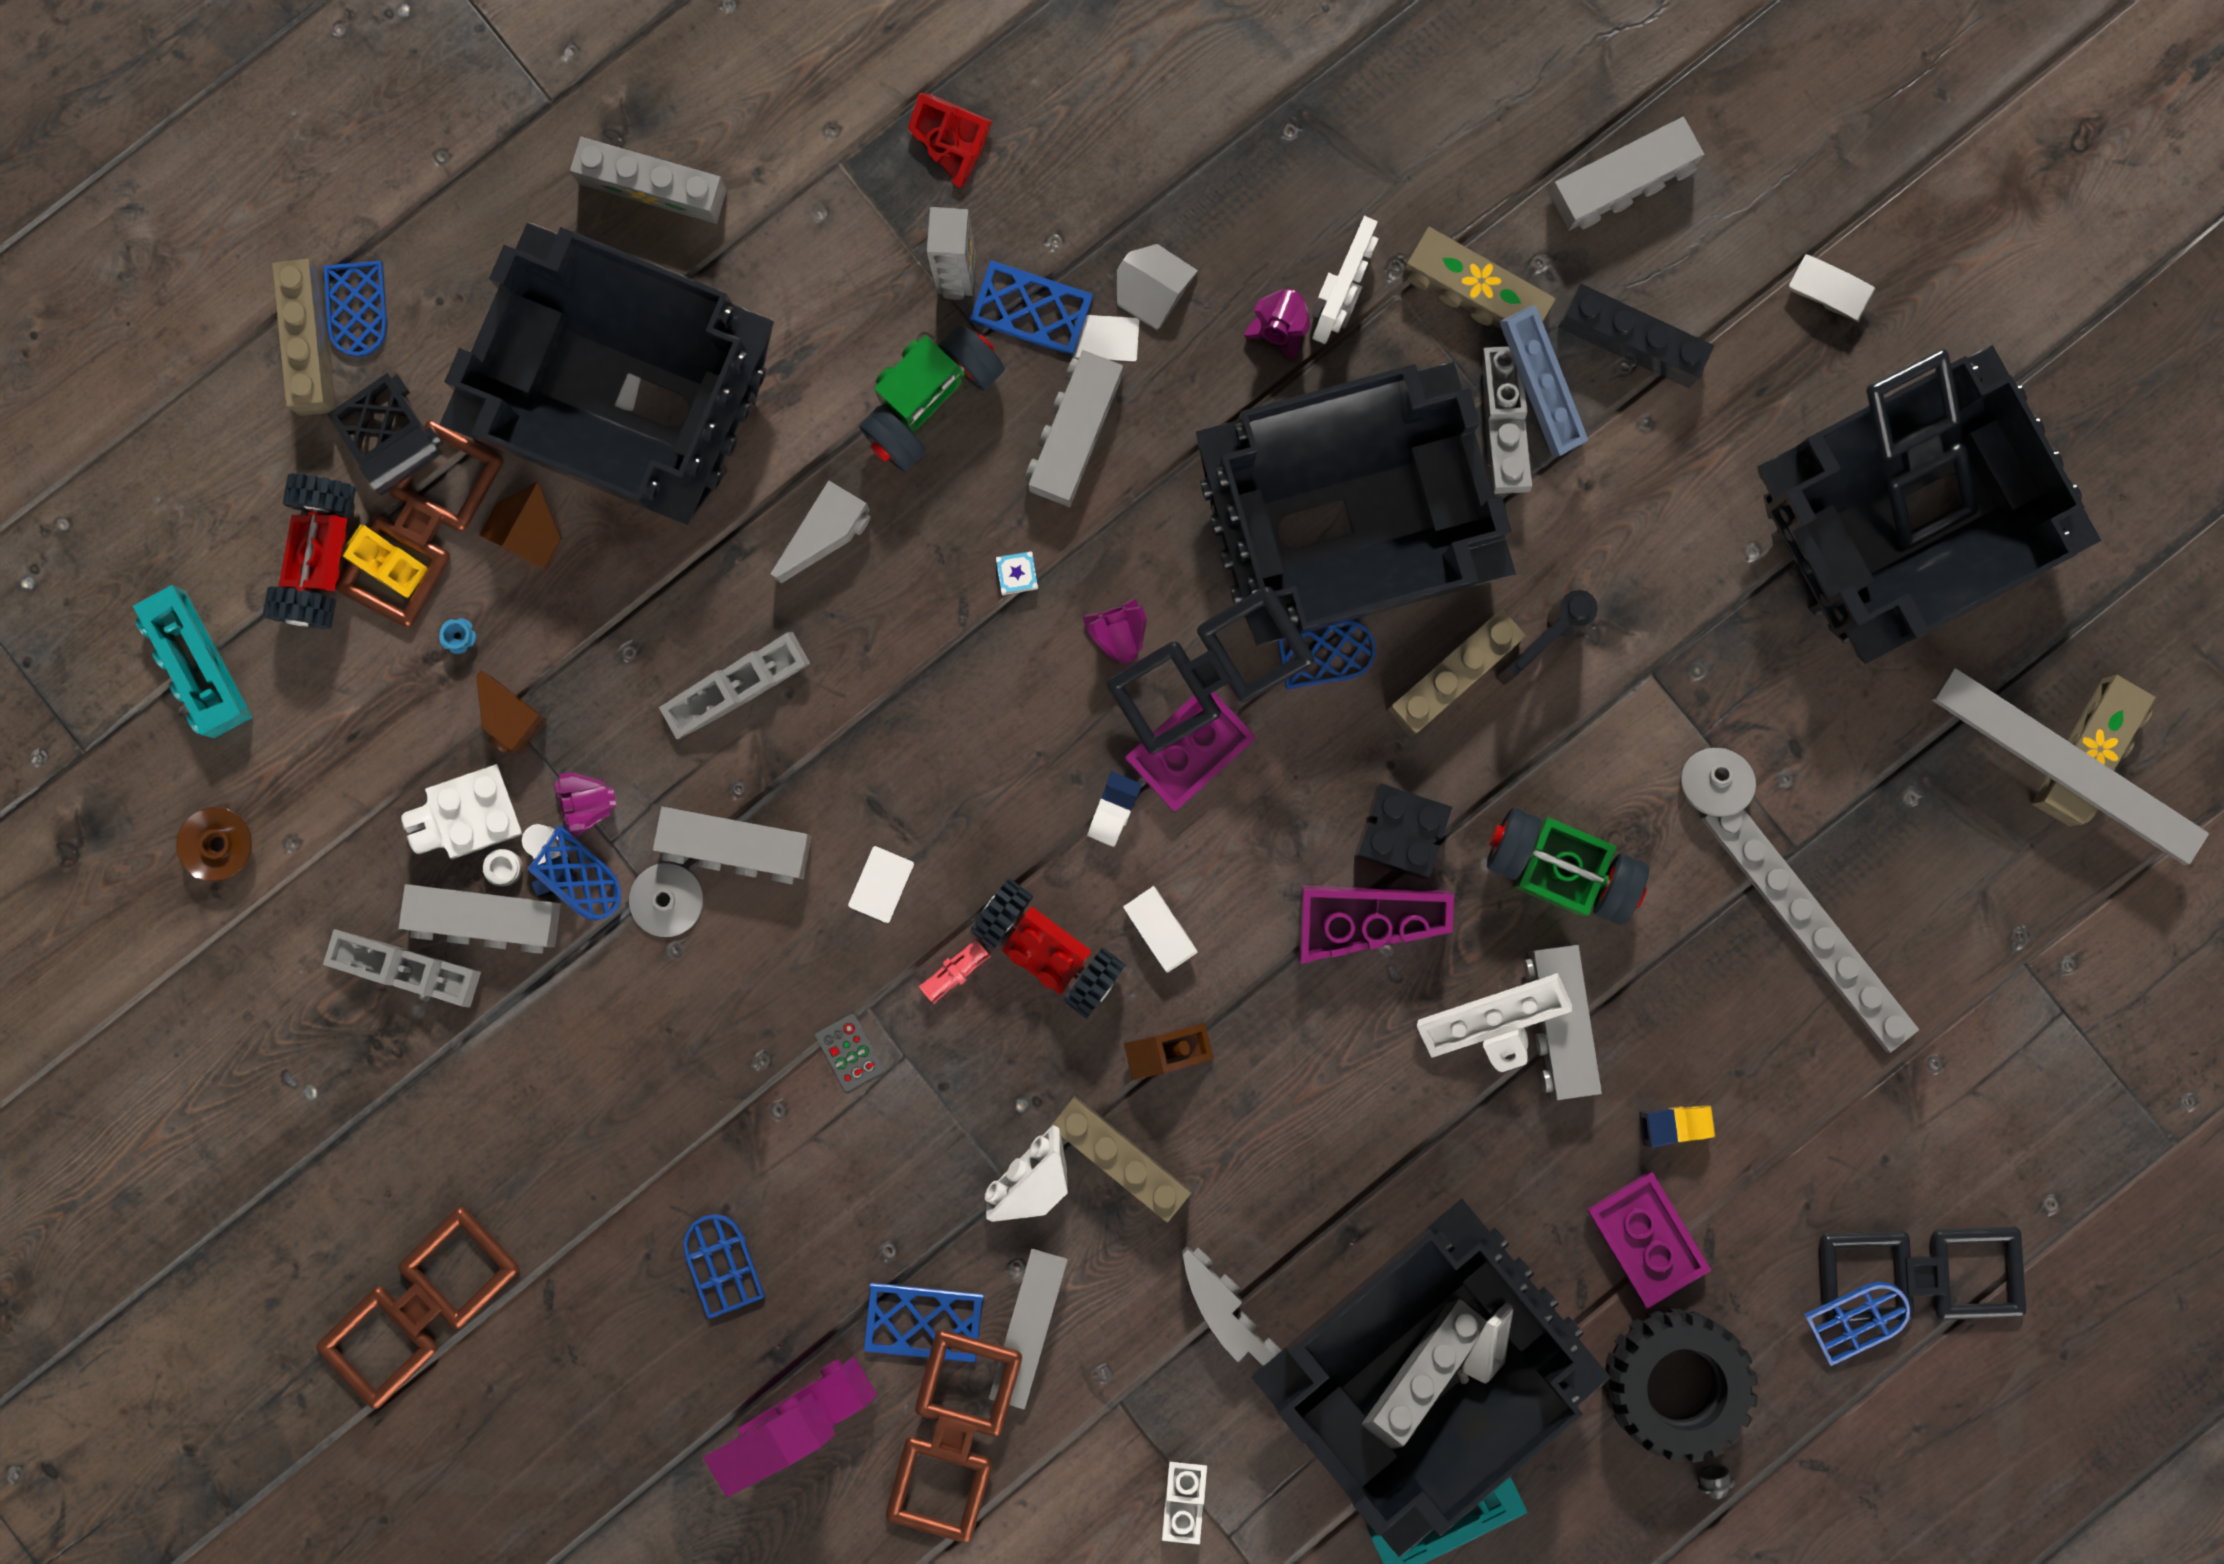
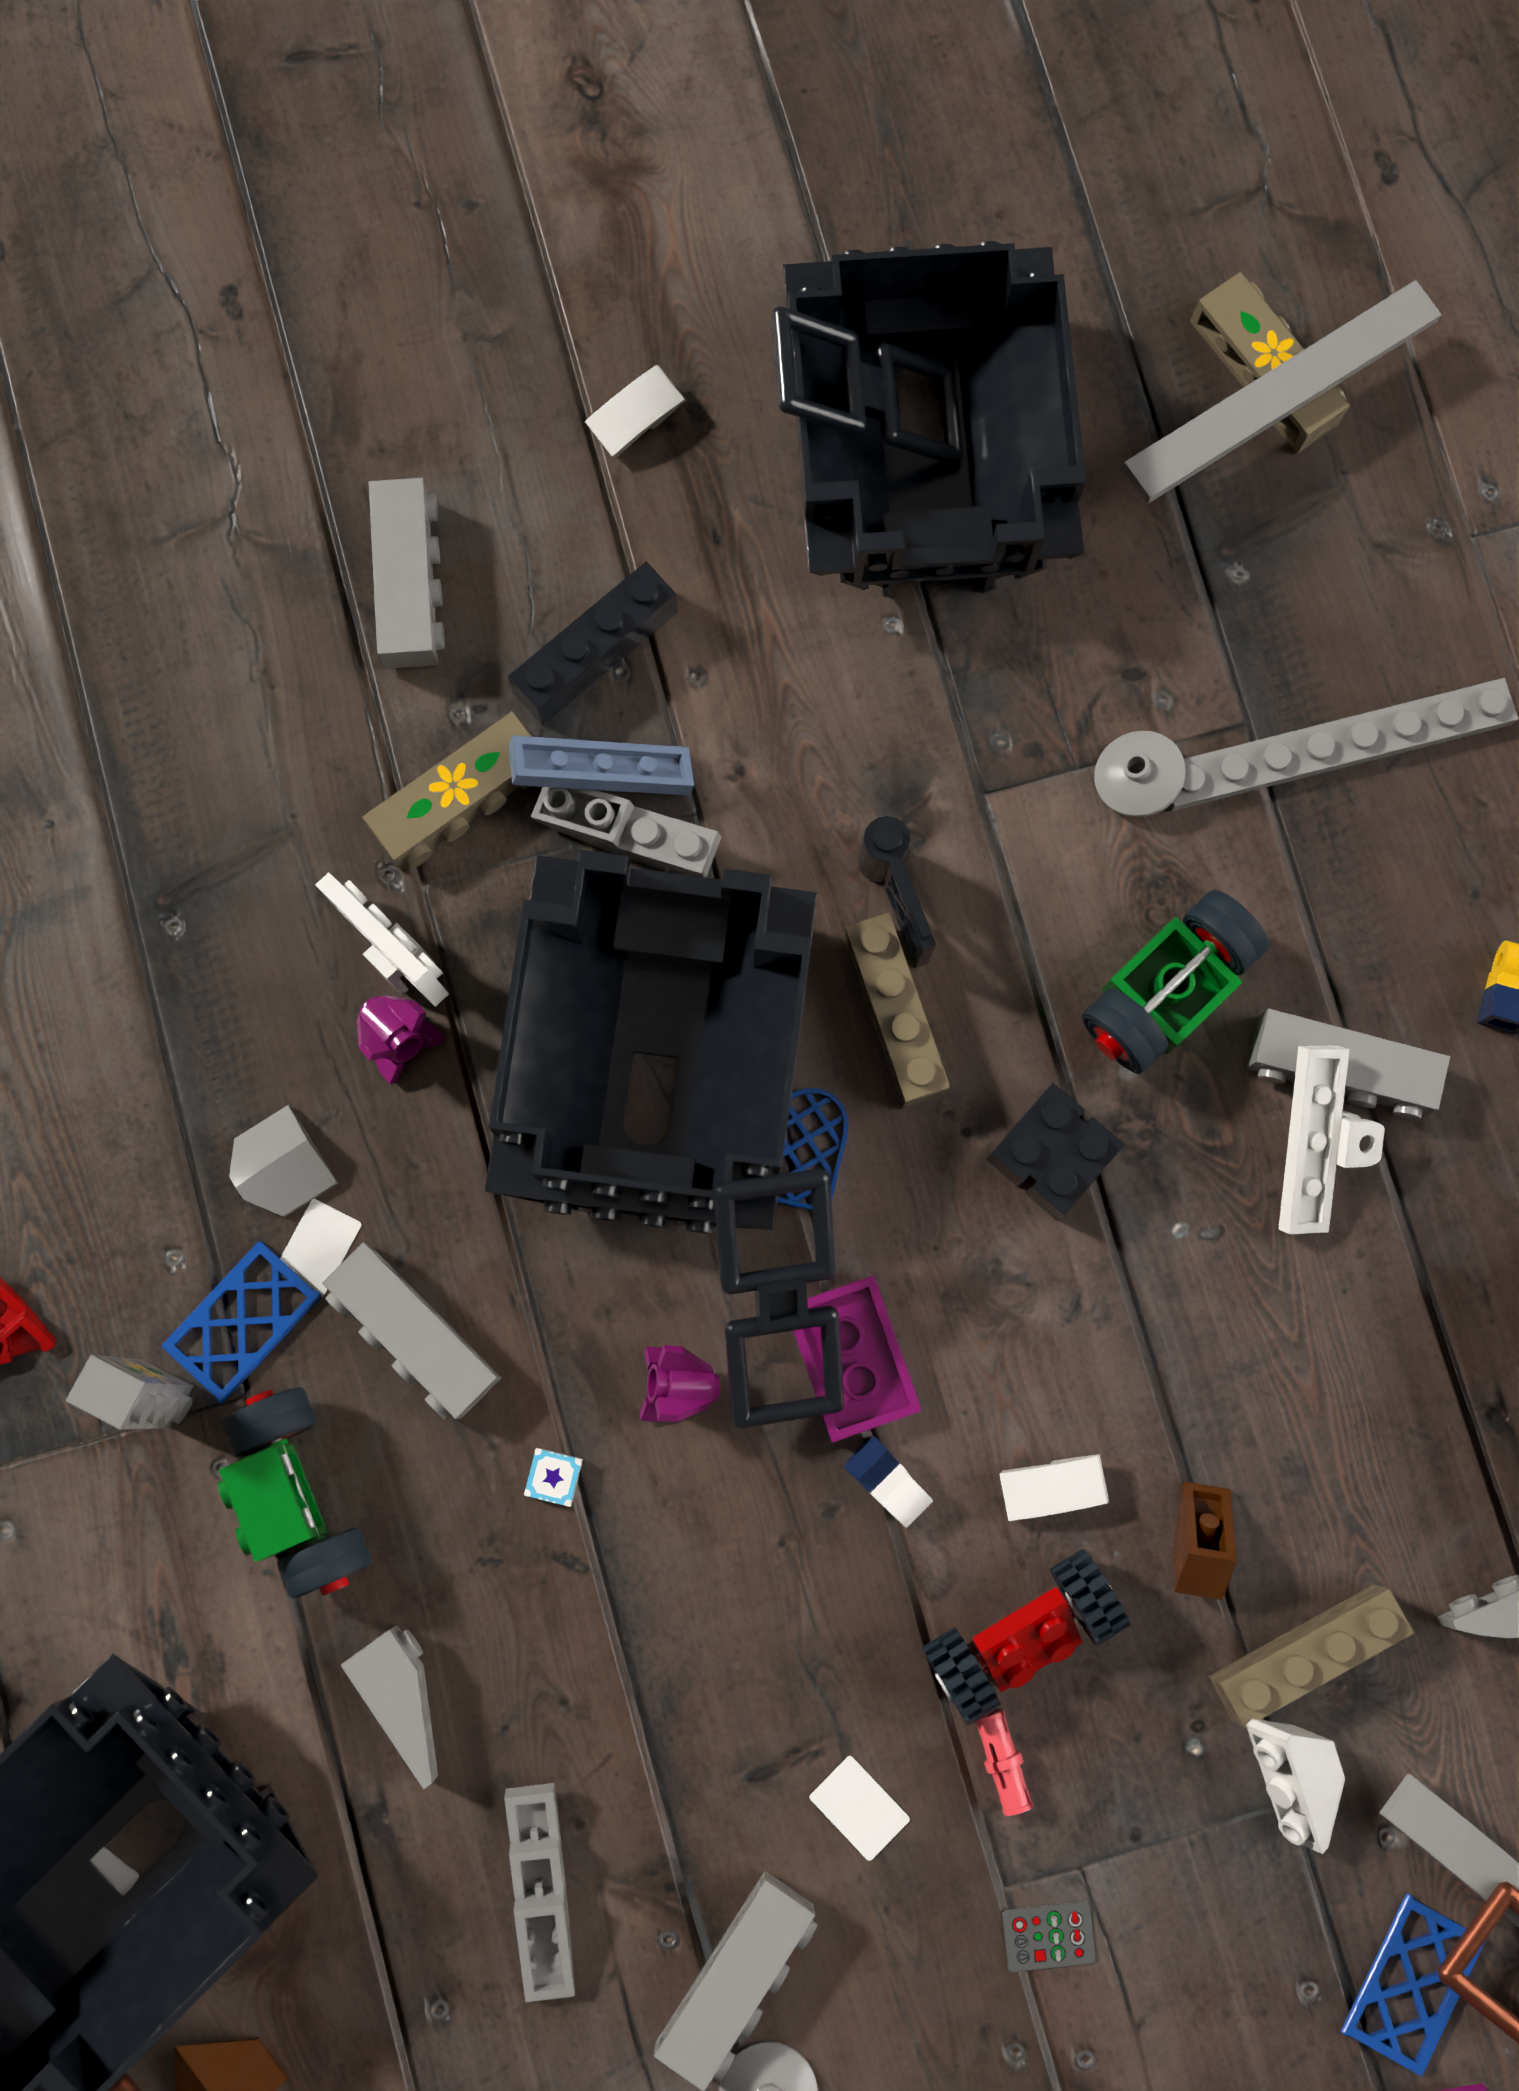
camera: 70 degrees left, 5 degrees down
(1363, 918) = (1139, 1238): magenta wedge -> none

